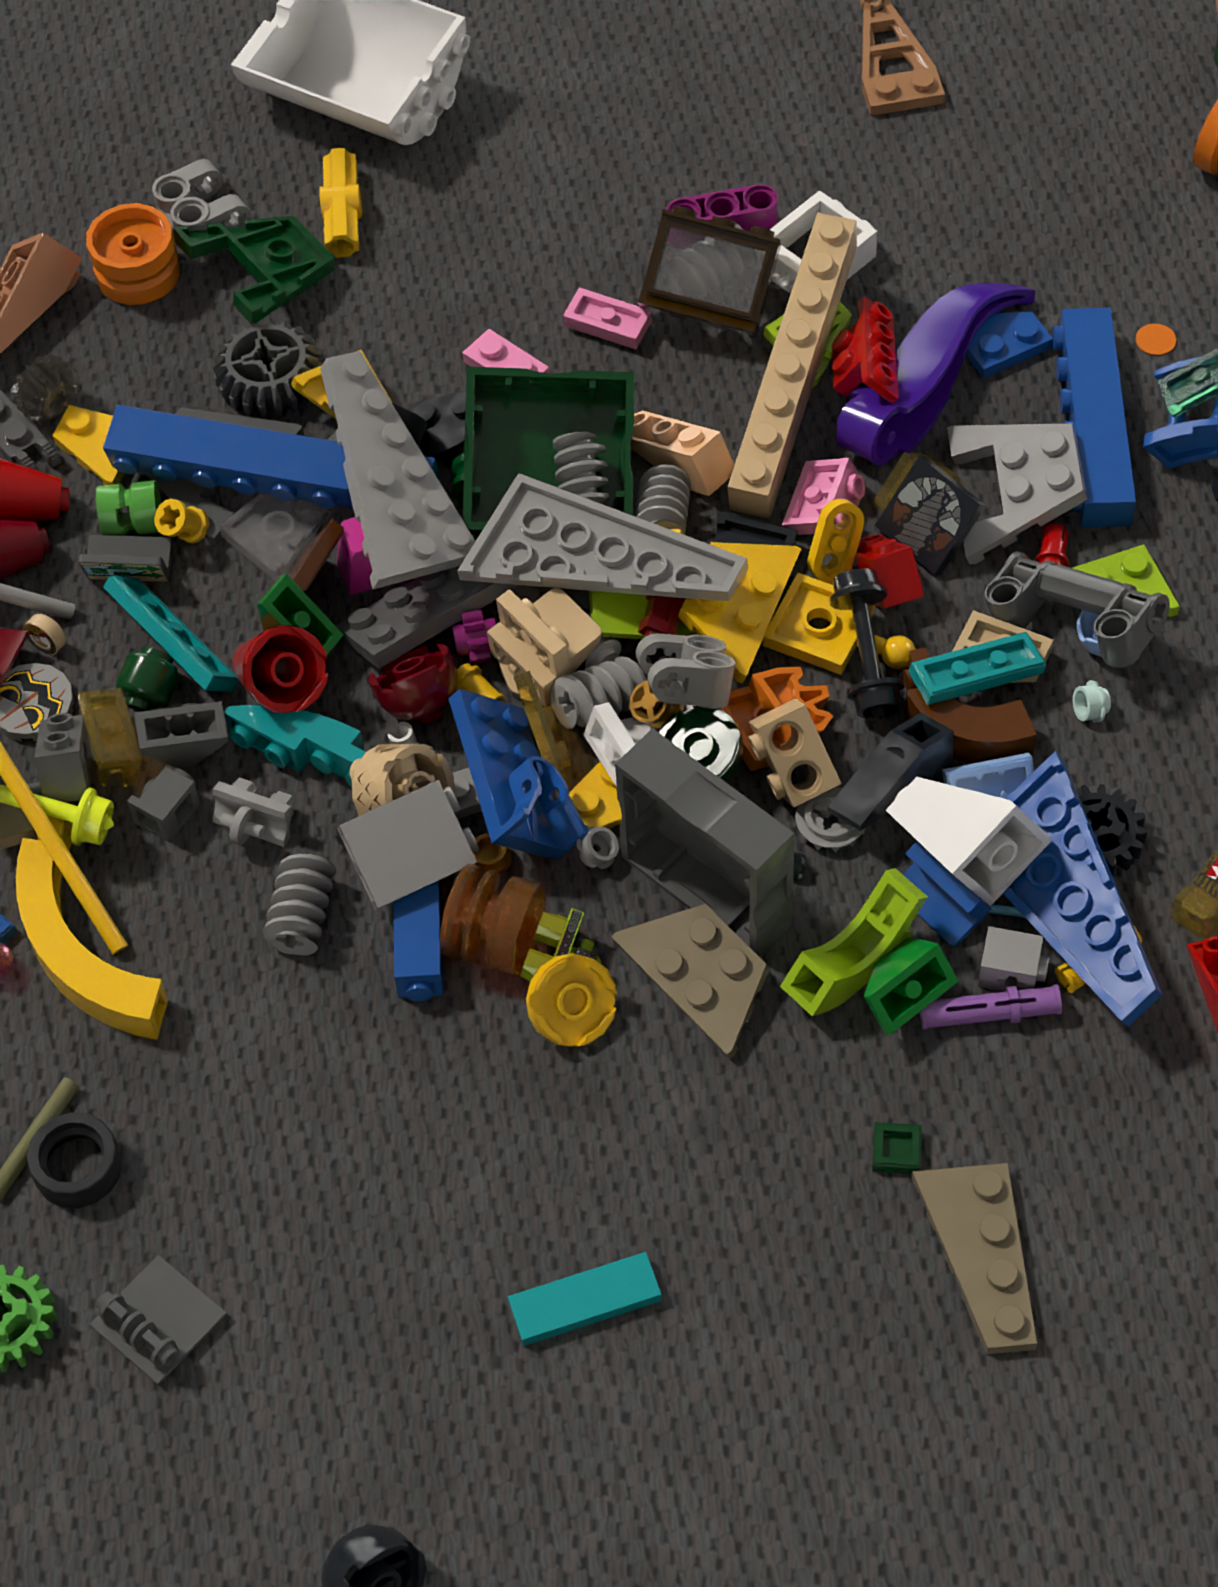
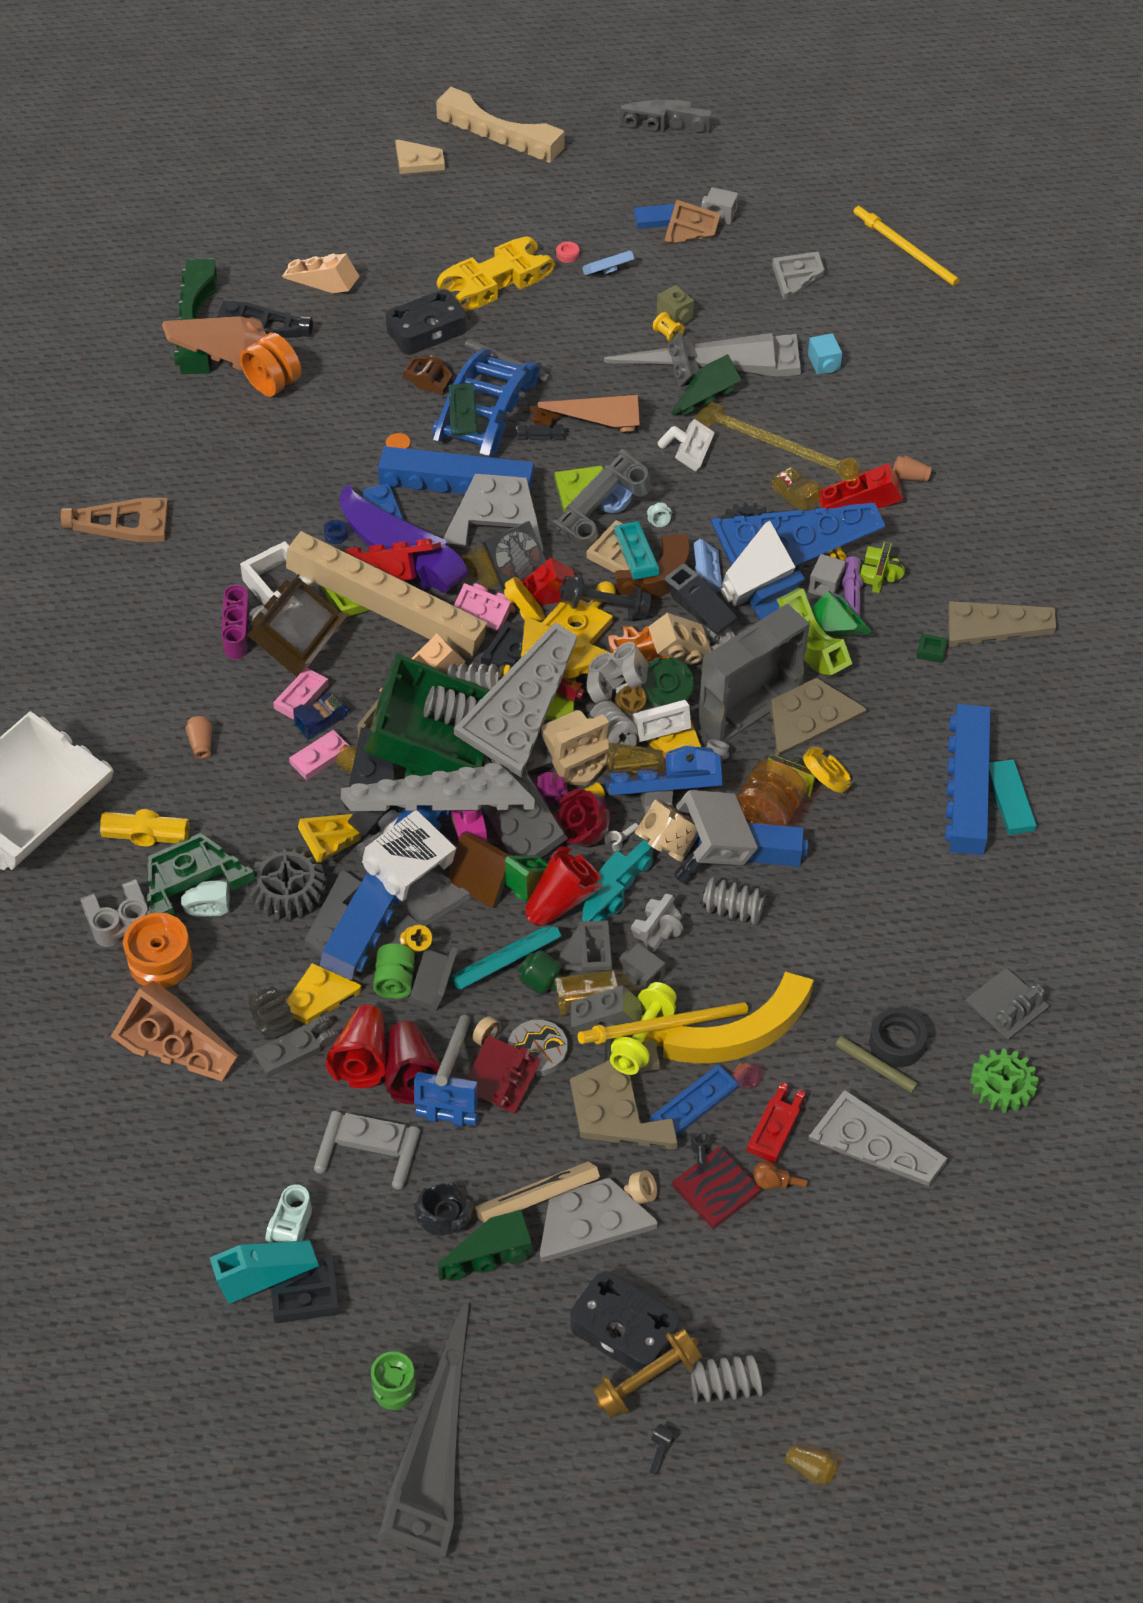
camera: 85 degrees left, 5 degrees down
(226, 280) = (207, 899): none -> light aqua rock
(279, 460) = (407, 854): none -> white panel
(507, 225) = (200, 736): none -> nougat cone
(569, 343) = (319, 715): none -> clear blue leg
(601, 1223) = (969, 779): none -> blue brick
(933, 287) = (334, 537): none -> clear blue bush
(1054, 545) = (548, 511): red pin -> none
(1056, 1048) = (890, 569): none -> lime hips

